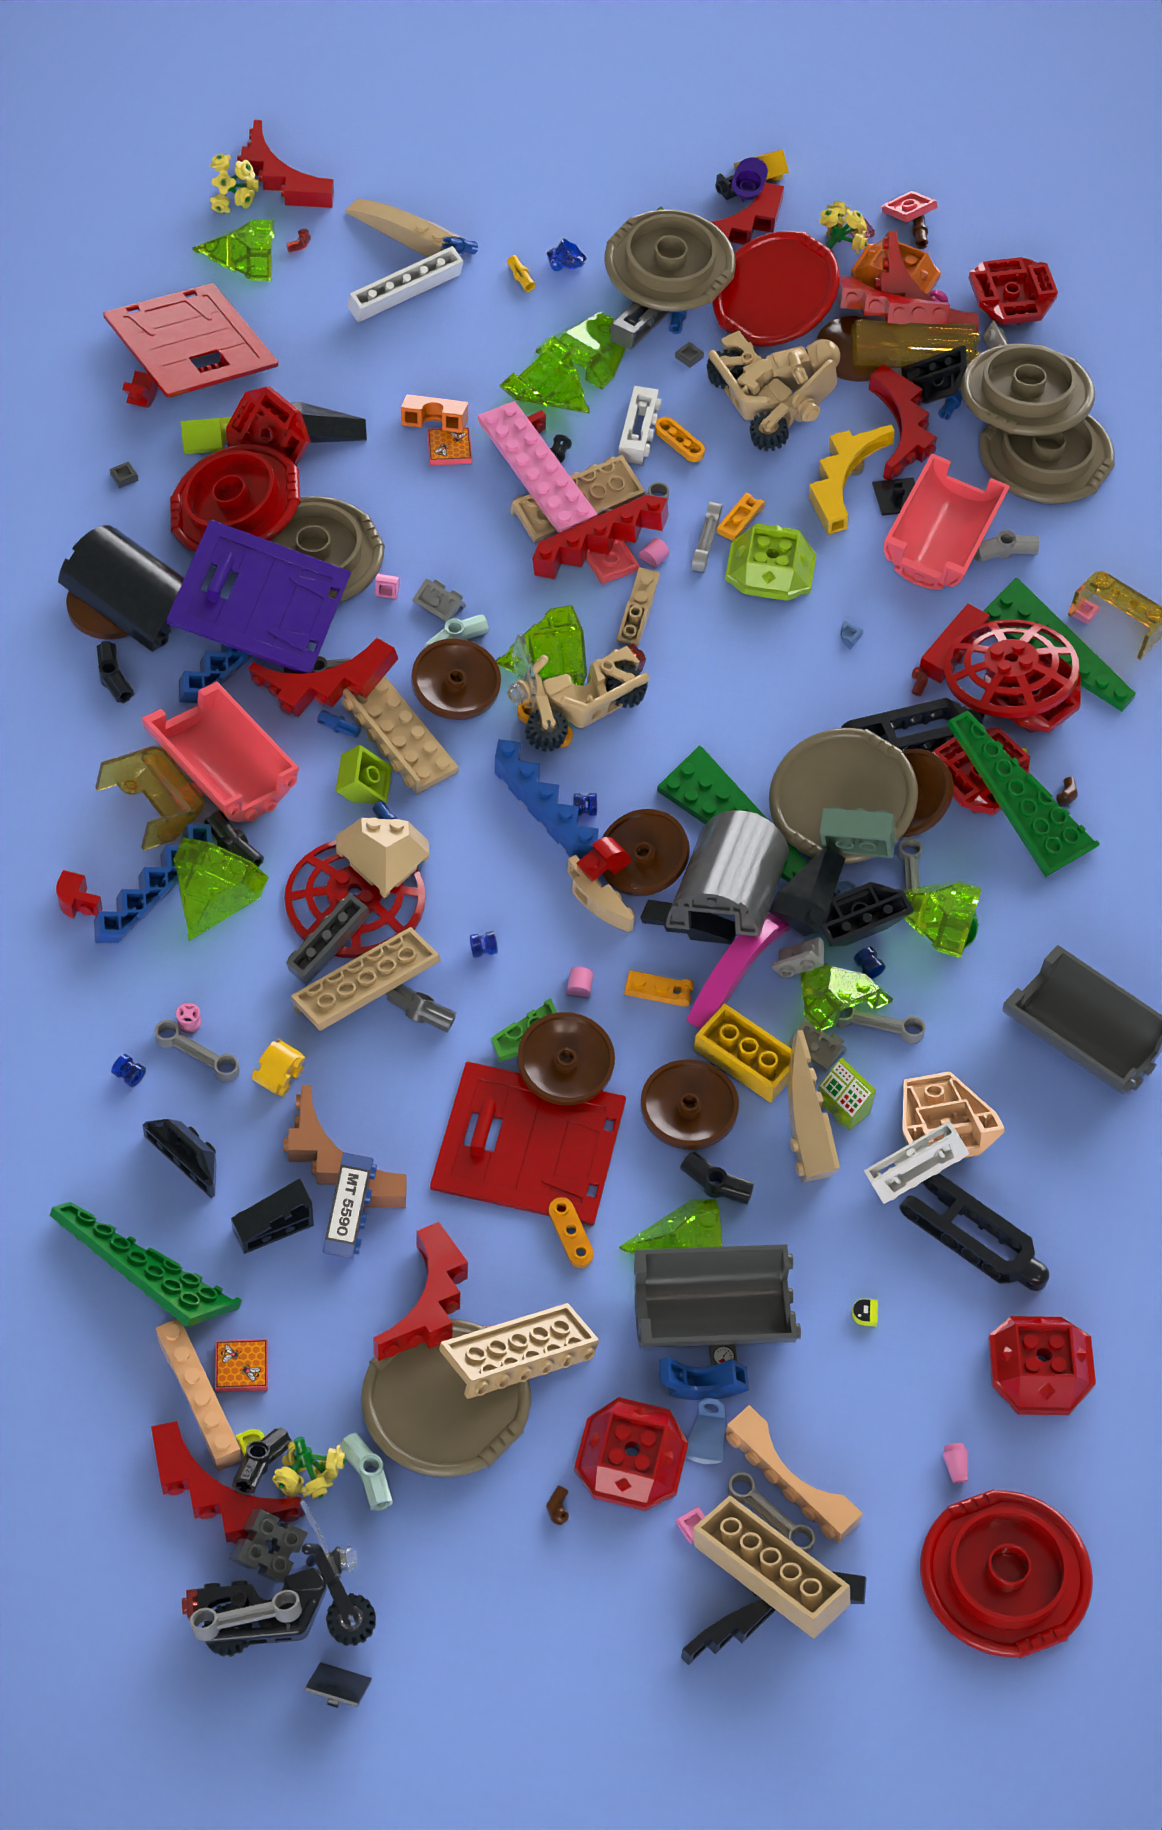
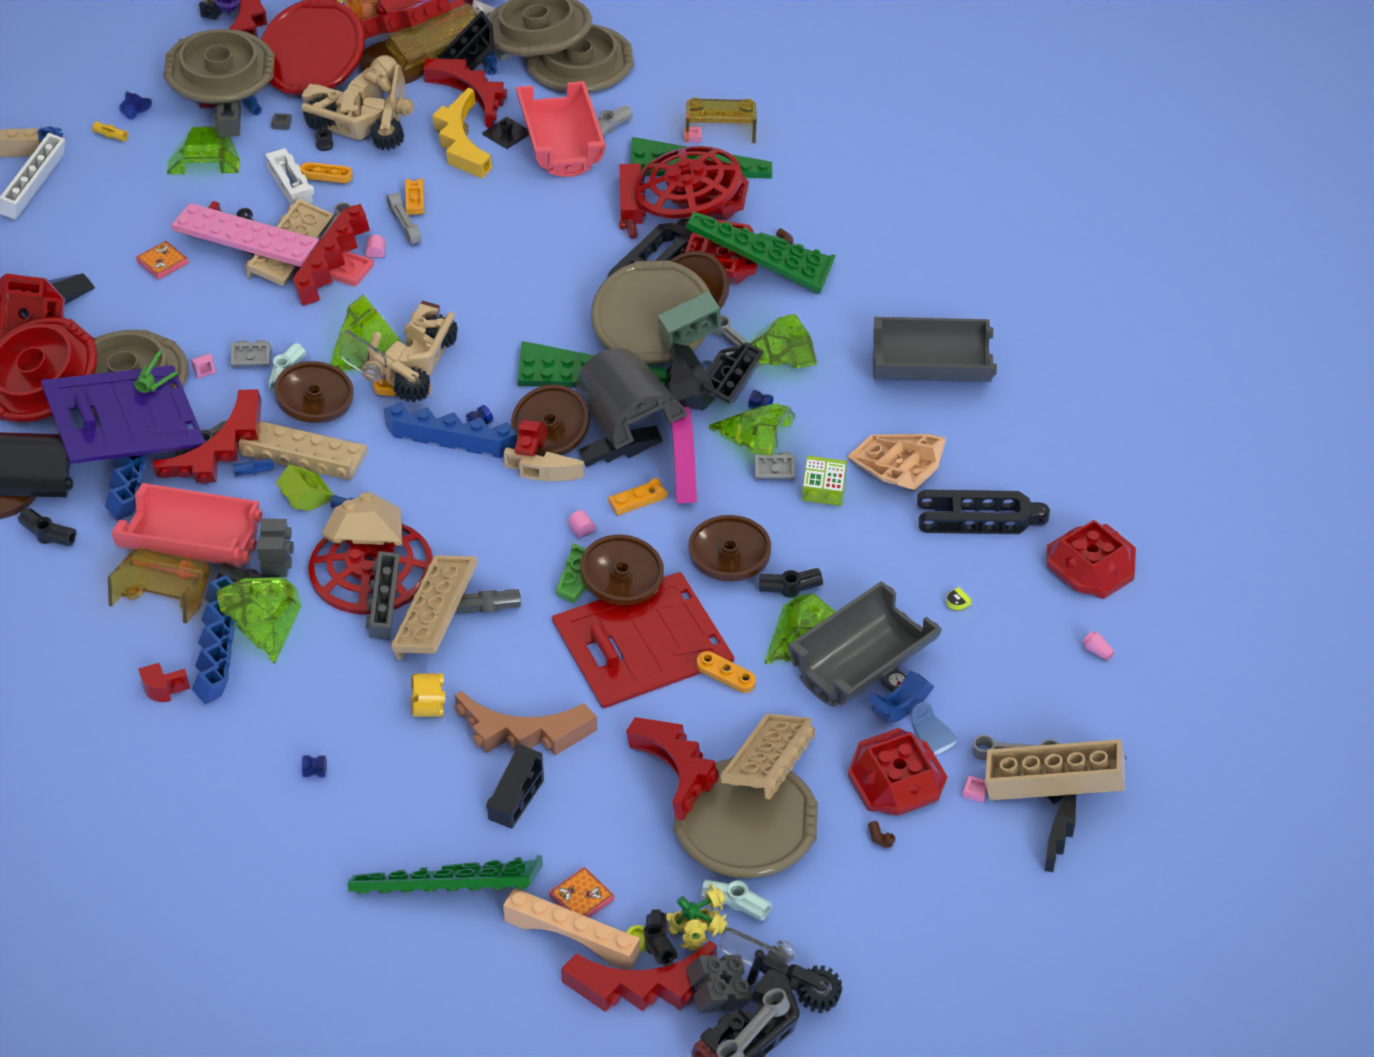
camera: 35 degrees left, 10 degrees down
(184, 1150) = (408, 789): black wedge -> none
(191, 1012) = (325, 708): bright pink wheel -> none
(197, 1051) = (351, 725): light grey piece -> none
(278, 823) = (275, 547): none -> dark grey brick
(303, 576) = (146, 380): none -> bright green plant
(338, 1685) = (849, 1037): black piece -> none
(348, 1205) = (565, 744): brick -> none
(420, 409) = (144, 237): orange arch -> none
(489, 944) = (492, 540): clear blue wheel -> none
(549, 380) = (200, 179): clear neon green wedge -> none
(638, 607) = (398, 282): tan slope -> none
(709, 400) = (324, 140): none -> black wheel
(745, 1052) = (737, 494): yellow brick -> none
(771, 563) = (462, 211): lime piece -> none
(800, 958) = (715, 422): light grey bracket -> none
(810, 1127) = (823, 509): tan wedge -> none
(830, 1511) = (1051, 723): light nougat arch -> none
(850, 634) = (555, 225): medium blue tile -> none
(885, 1023) = (808, 429): light grey piece -> none
(917, 1162) = (910, 489): white brick -> none
(1006, 1573) = (1188, 688): red piece -> none

